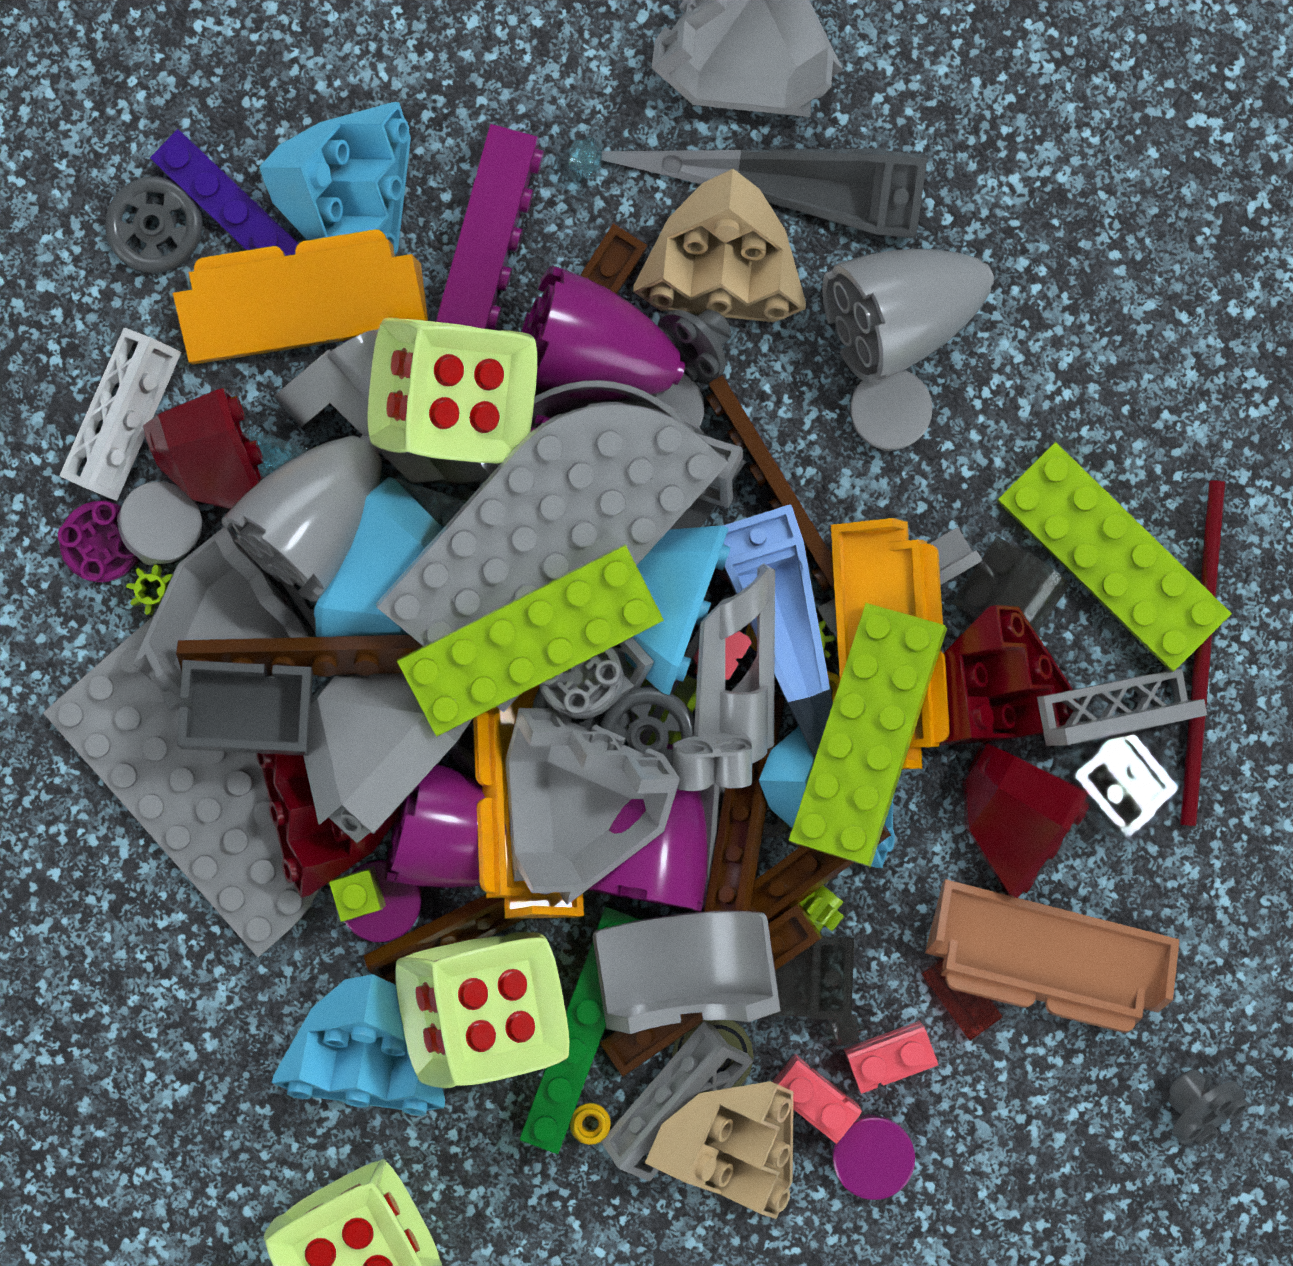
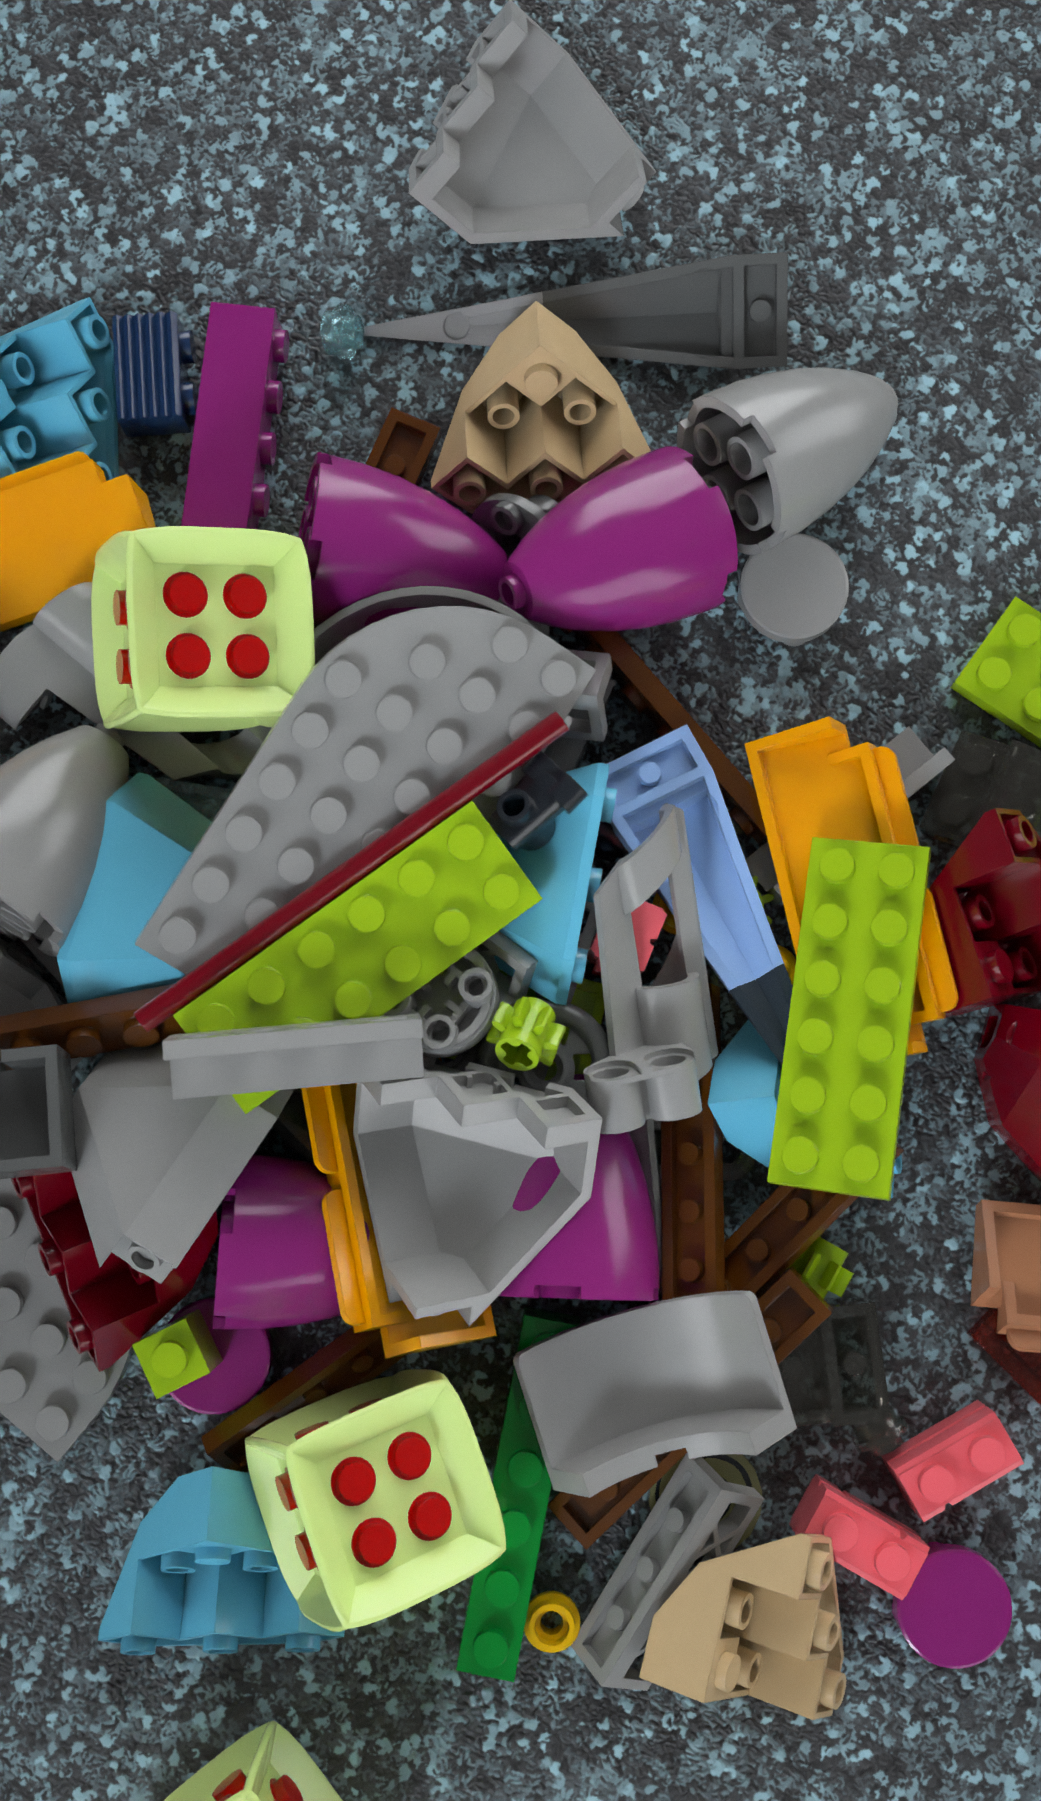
camera: 10 degrees left, 5 degrees down
(438, 168) = (153, 374): none -> dark blue brick
(479, 703) = (295, 1056): none -> light grey fence
(535, 580) = (350, 872): none -> dark red piece
(637, 711) = (525, 1033): none -> lime gear
(664, 557) = (528, 811): none -> black plate
(765, 372) = (626, 550): none -> magenta cylinder

